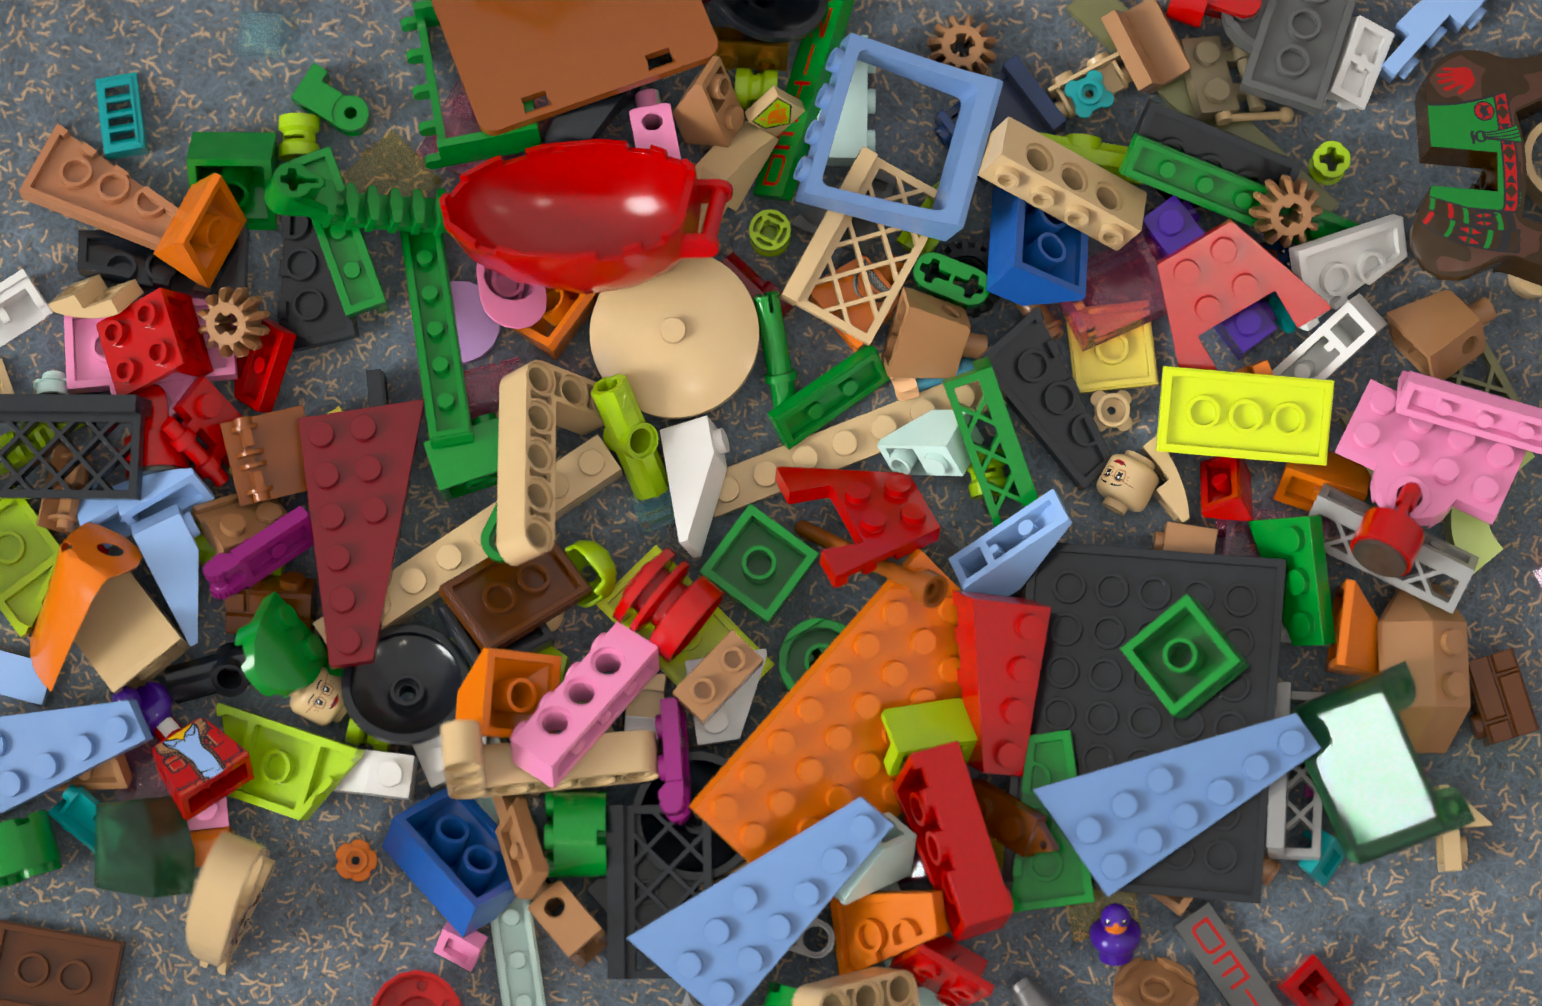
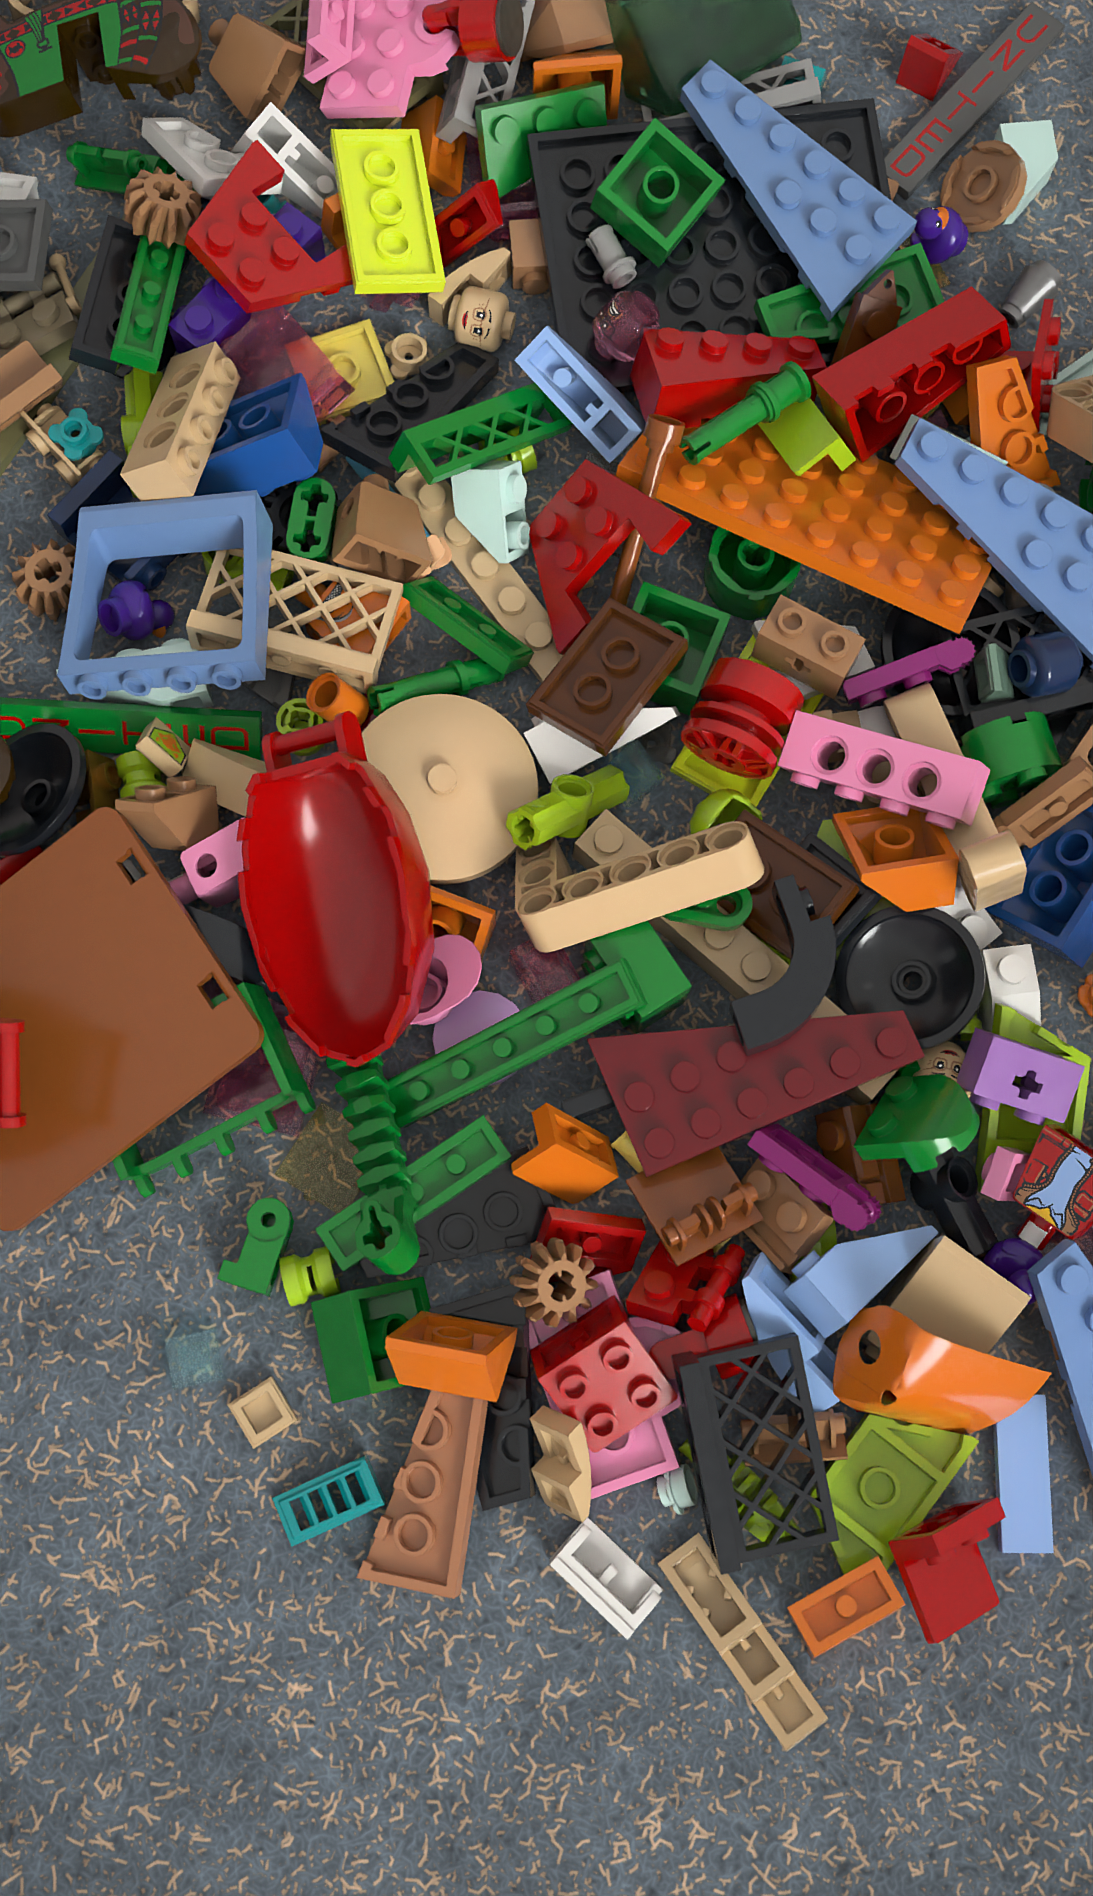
camera: 110 degrees left, 5 degrees down
(203, 79) = (262, 1412): none -> tan tile
(224, 715) = (1003, 1172): none -> bright pink plate
(295, 745) = (1045, 1085): none -> medium lavender brick
(336, 364) = (569, 1158): none -> orange panel
(437, 593) = (785, 1007): none -> black arch
(647, 881) = (1045, 664): none -> dark blue head
(651, 838) = (992, 675): none -> sand green slope
(732, 494) = (607, 676): none -> reddish brown tile
(774, 263) = (332, 695): none -> orange beam
(907, 111) = (133, 613): none -> dark purple animal
(948, 693) = (761, 404): none -> green pin
(1066, 598) = (622, 324): none -> clear pink head
(1142, 606) = (616, 265): none -> light grey pin
(1338, 154) = (100, 200): lime bush -> none
(1364, 182) = (108, 168): none -> green hinge

